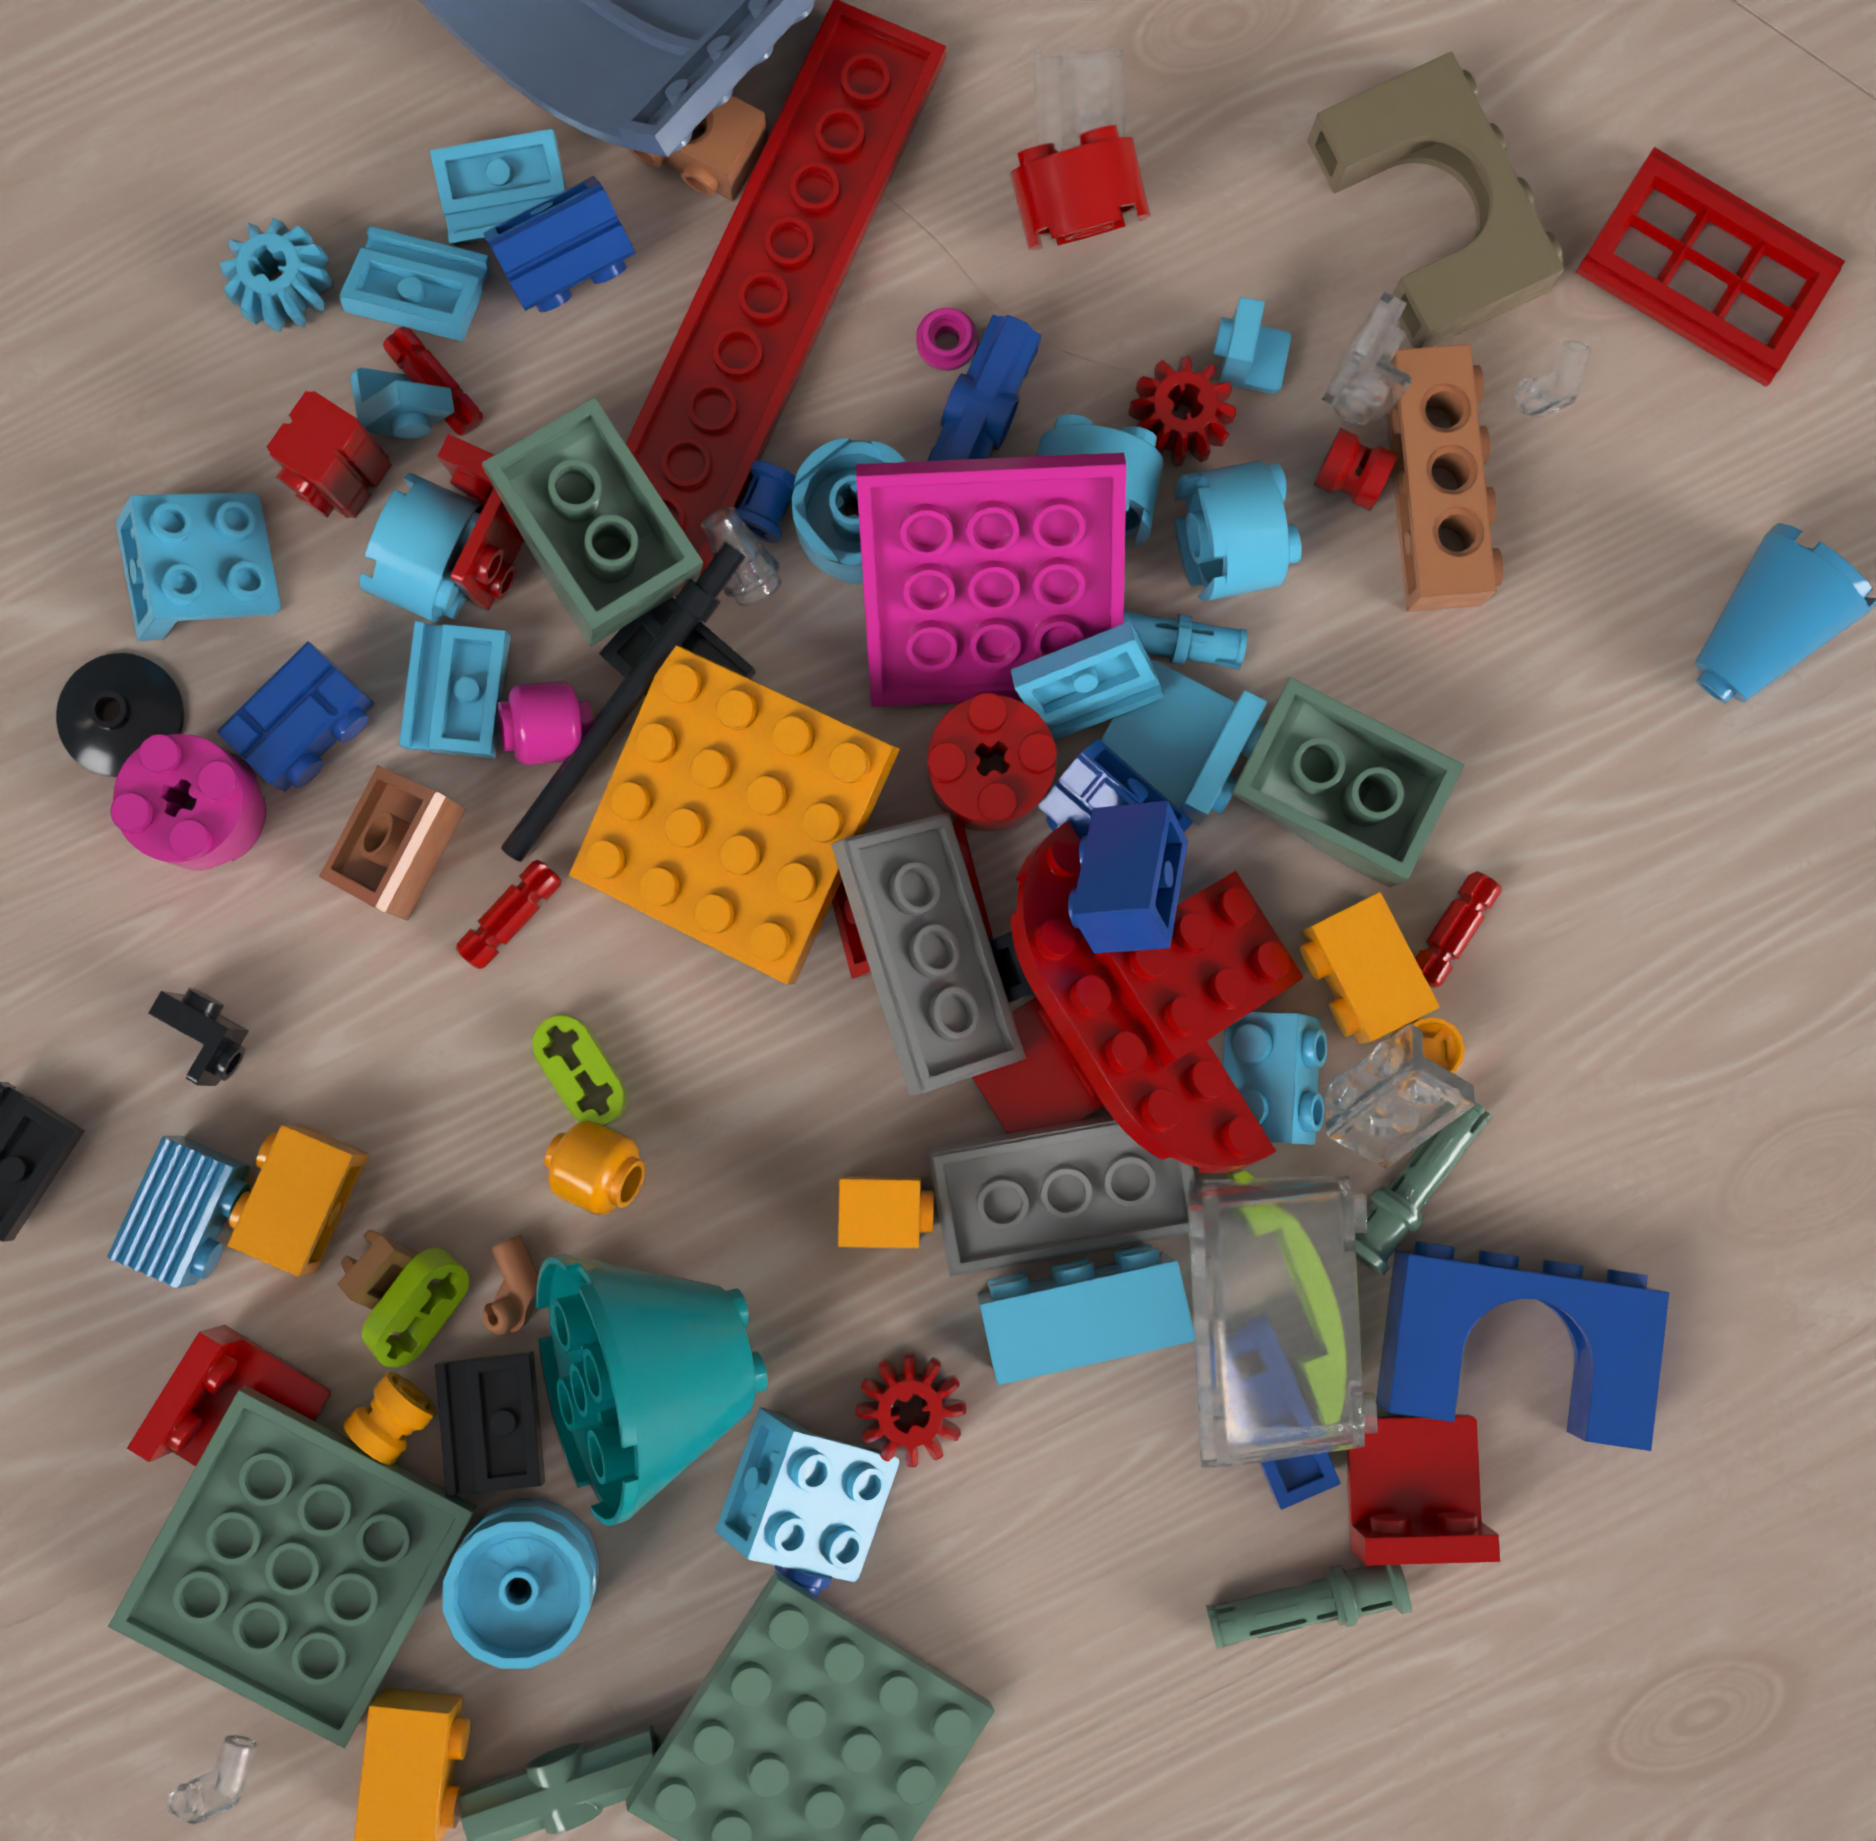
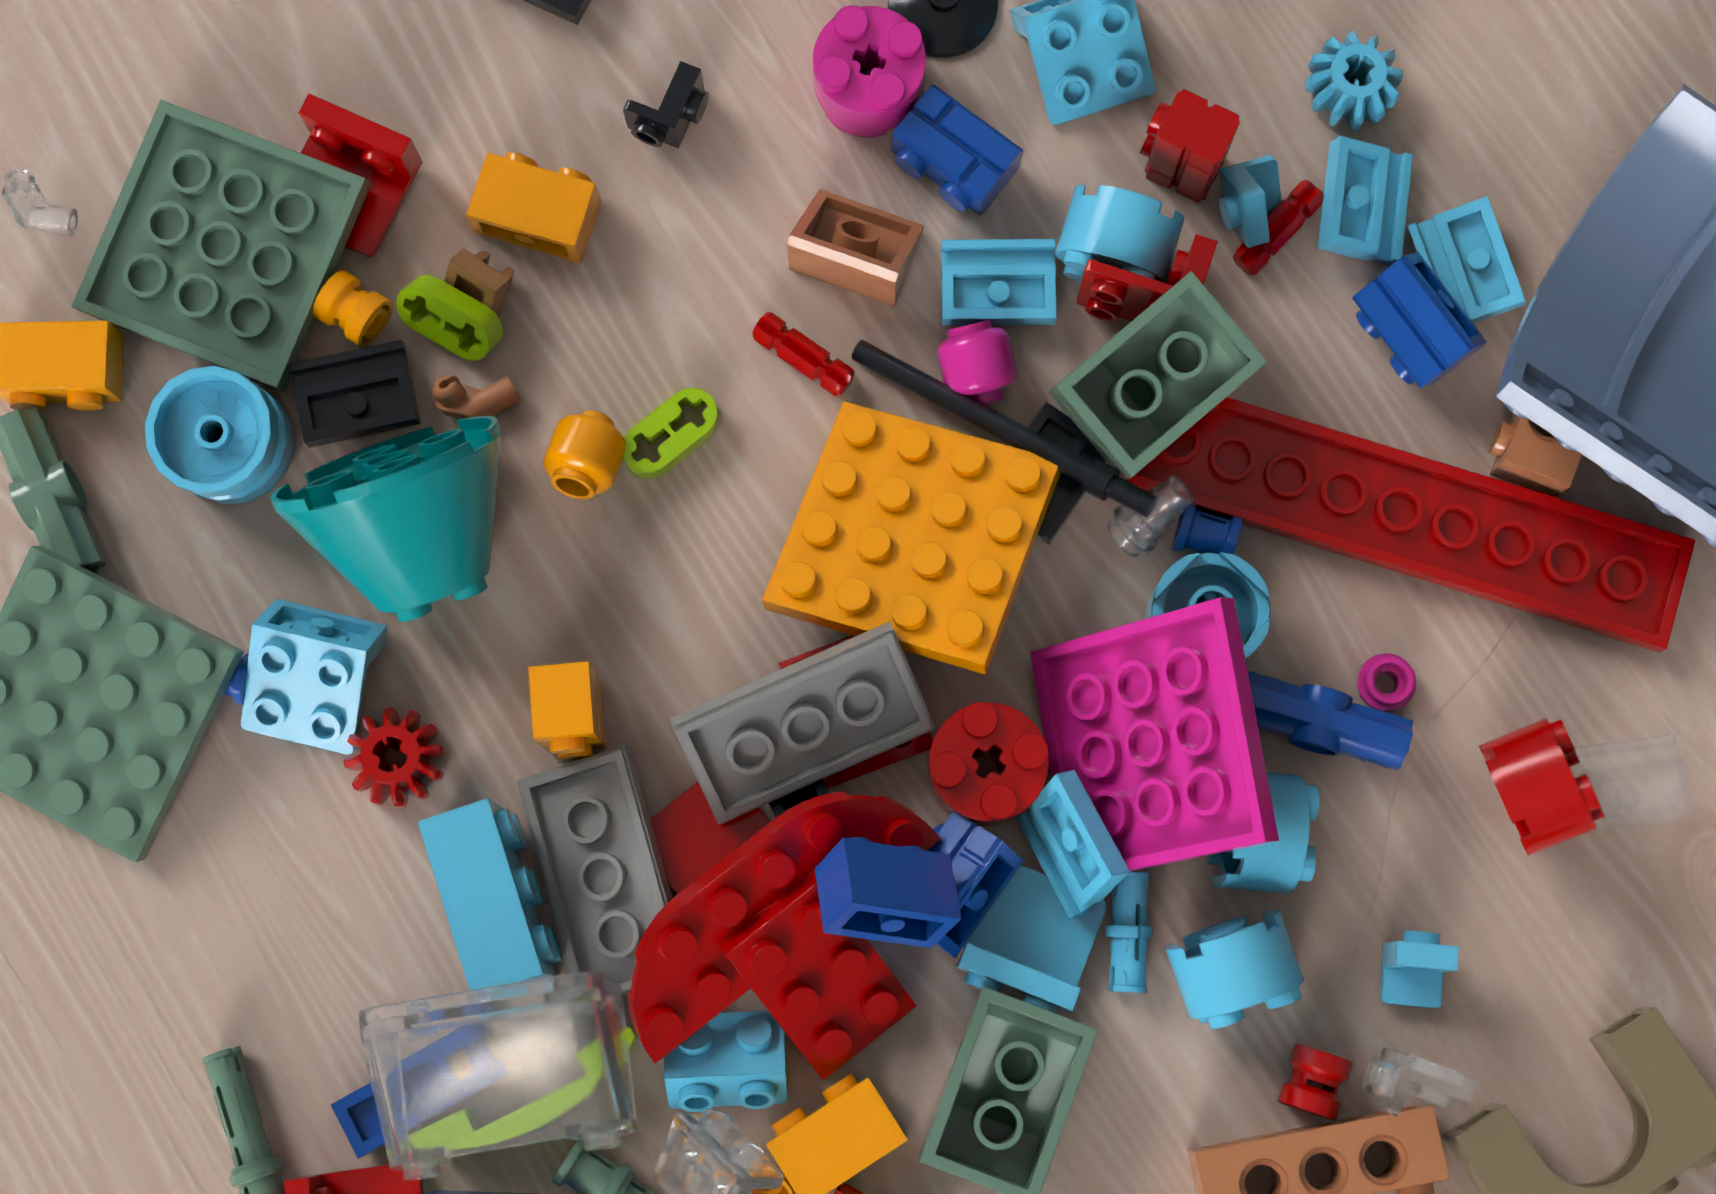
camera: 85 degrees right, 5 degrees down
(180, 1212) = (514, 111): dark azure brick -> none
(1191, 389) = (1354, 931): red gear -> none

